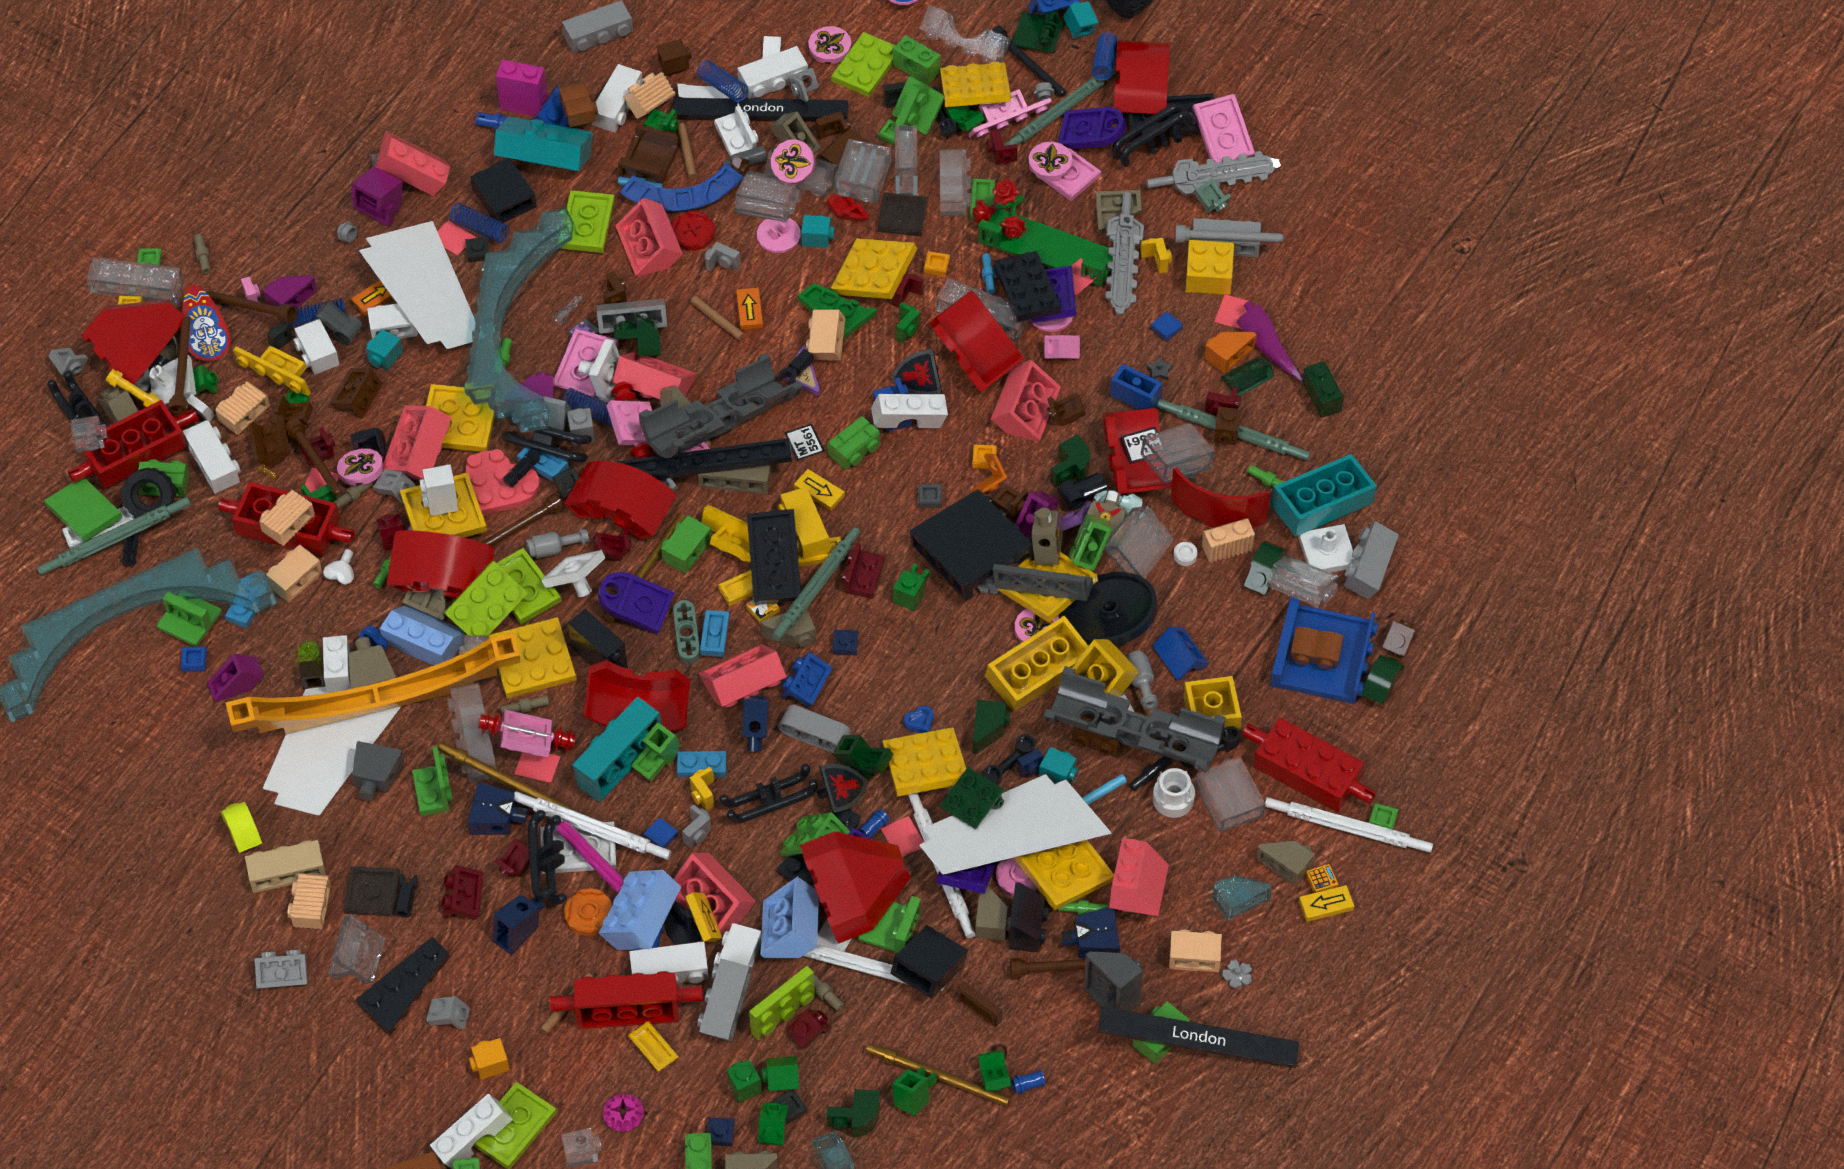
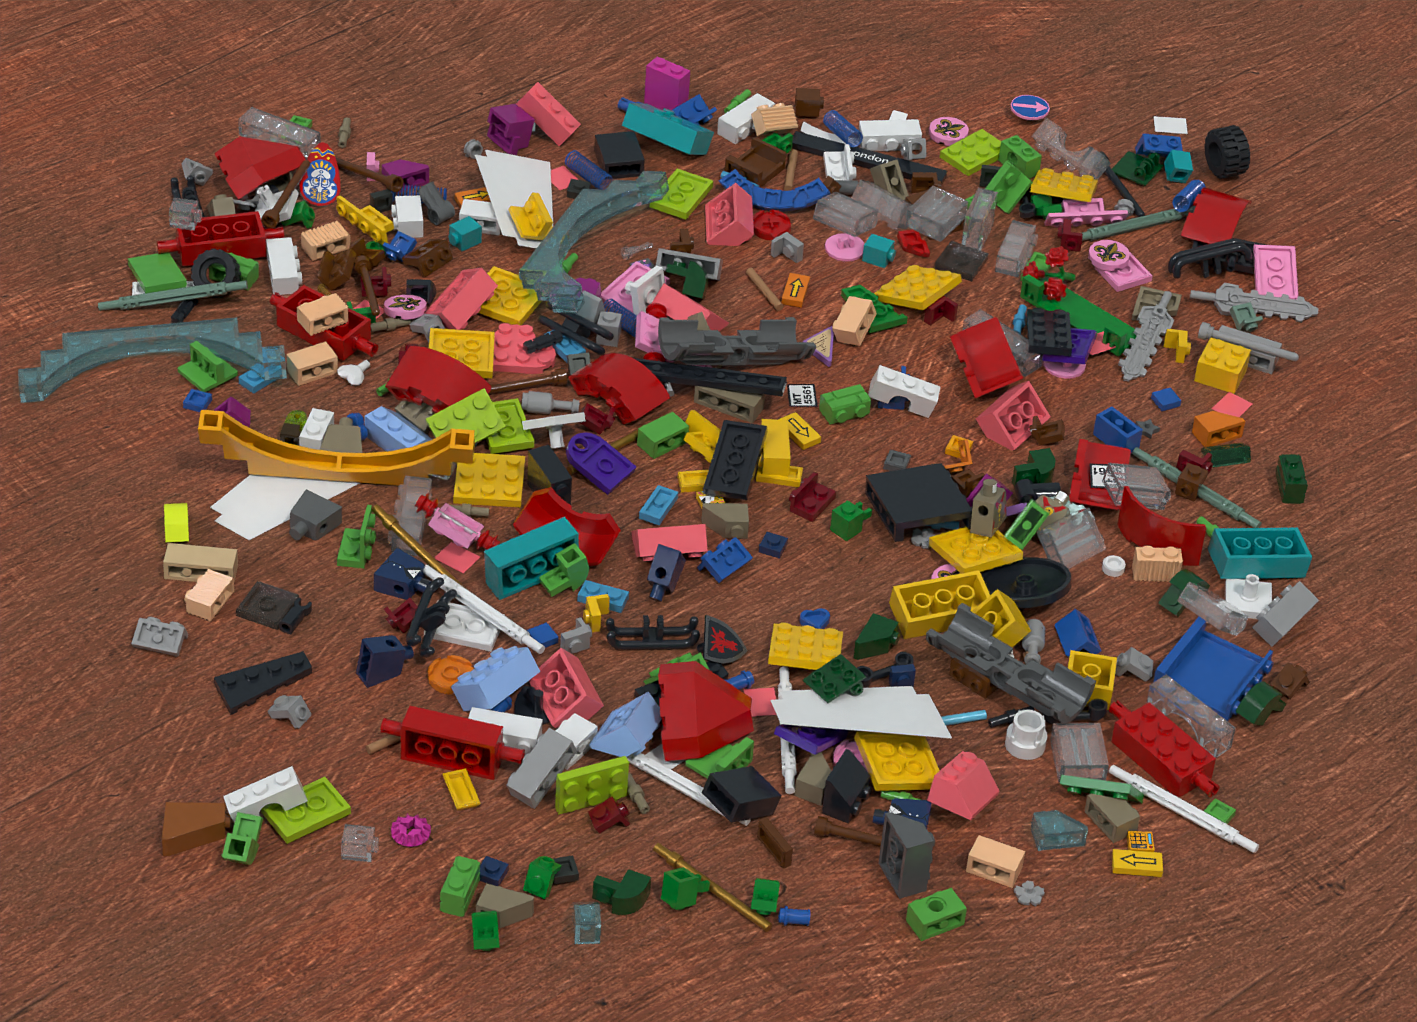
camera: 15 degrees right, 15 degrees down
(115, 378) = (227, 186): yellow bar -> none
(200, 408) = (290, 231): white tile -> none
(323, 390) = (399, 246): none -> blue bracket
(356, 951) = (230, 638): clear bracket -> none
(439, 490) = (462, 329): white brick -> none
(449, 313) = (532, 219): none -> yellow bracket
(462, 892) = (346, 626): dark red bracket -> none
(489, 1059) = (309, 753): light orange brick -> none
(577, 104) = (709, 107): dark orange brick -> none
(597, 26) = (752, 68): light grey brick -> none
(598, 76) = (737, 100): none -> bright green bar
(600, 865) = (470, 628): dark pink axle -> none
(681, 624) = (632, 491): sand green beam -> none
(703, 917) = (550, 700): yellow tile -> none
(744, 1080) = (530, 836): green brick -> none
(781, 1073) = (567, 840): green brick -> none
(793, 161) = (877, 190): bright pink tile -> none
(797, 366) = (819, 335): black bar -> none
(812, 728) = (716, 597): light grey beam -> none
(815, 584) = (764, 489): sand green axle -> none
(858, 755) = (748, 626): dark green brick -> none
(909, 324) = (931, 334): green bracket -> none
(919, 373) = (927, 366): shield -> none
(936, 264) = (976, 301): light orange tile -> none
(1042, 582) = (969, 540): dark grey fence -> none
(1059, 766) = (927, 682): teal brick -> none
(1062, 346) = (1063, 385): bright pink panel -> none
(1091, 127) = (1156, 241): dark purple tile -> none
(1198, 1037) = (969, 923): black tile -> none
(1247, 668) = (1136, 663): none -> light grey bracket
(1264, 835) = (1117, 790): none -> green wing
(1267, 340) = (1254, 429): magenta piece -> none
(1299, 702) = (1210, 728): none -> clear arch
(1316, 648) = (1207, 663): dark orange brick -> none

